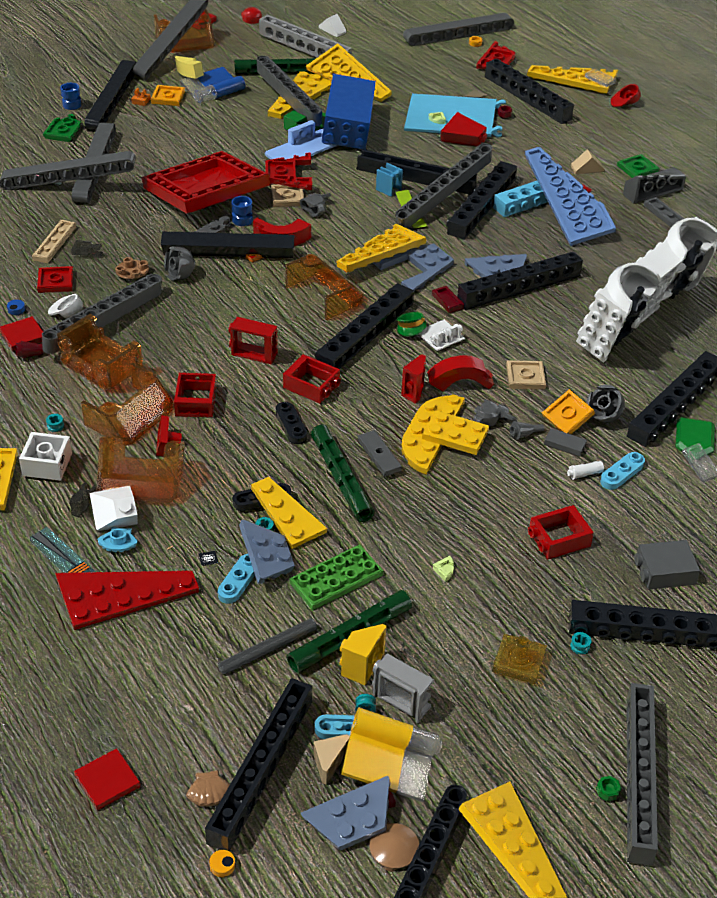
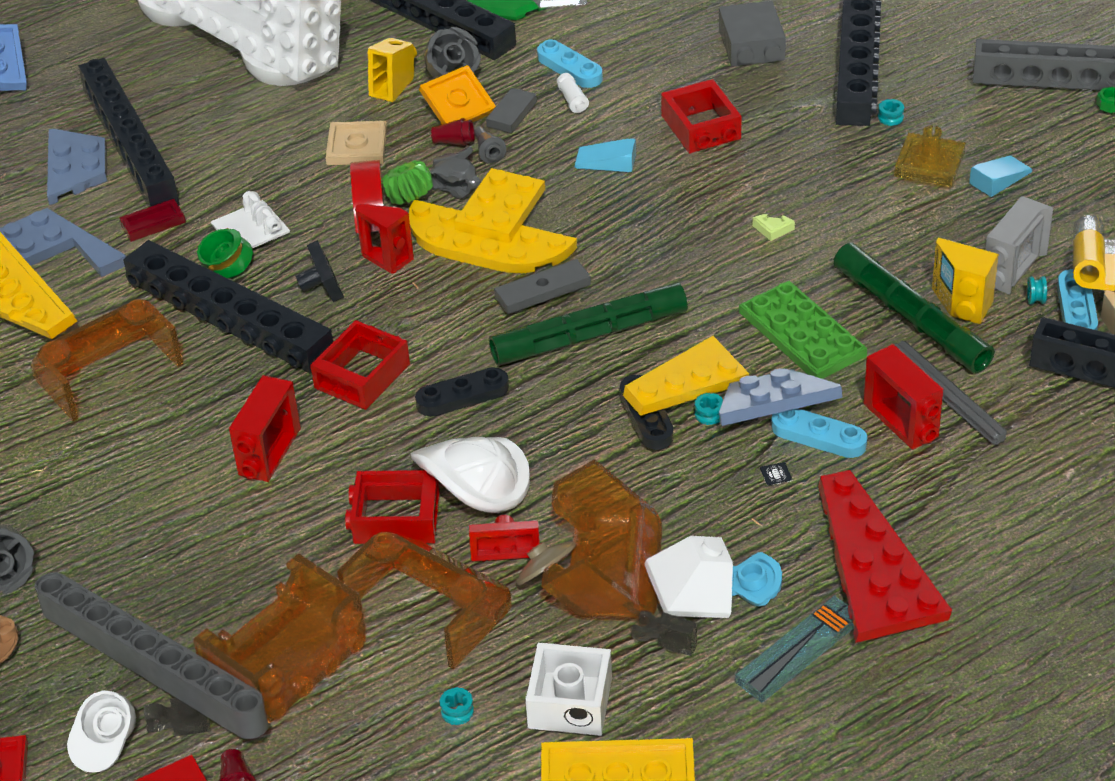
camera: 85 degrees left, 0 degrees up
(139, 446) = (541, 557): none -> dark tan dish
(215, 420) = (479, 471): none -> white piece
(253, 619) = (893, 372): none -> red window
(392, 362) = (320, 273): none -> black tile
(475, 390) = (407, 182): none -> bright green gear
(507, 701) = (997, 174): none -> medium azure slope
(516, 487) = (608, 156): none -> medium azure slope
(534, 414) = (454, 132): none -> dark red cone
(594, 375) = (390, 68): none -> yellow torso

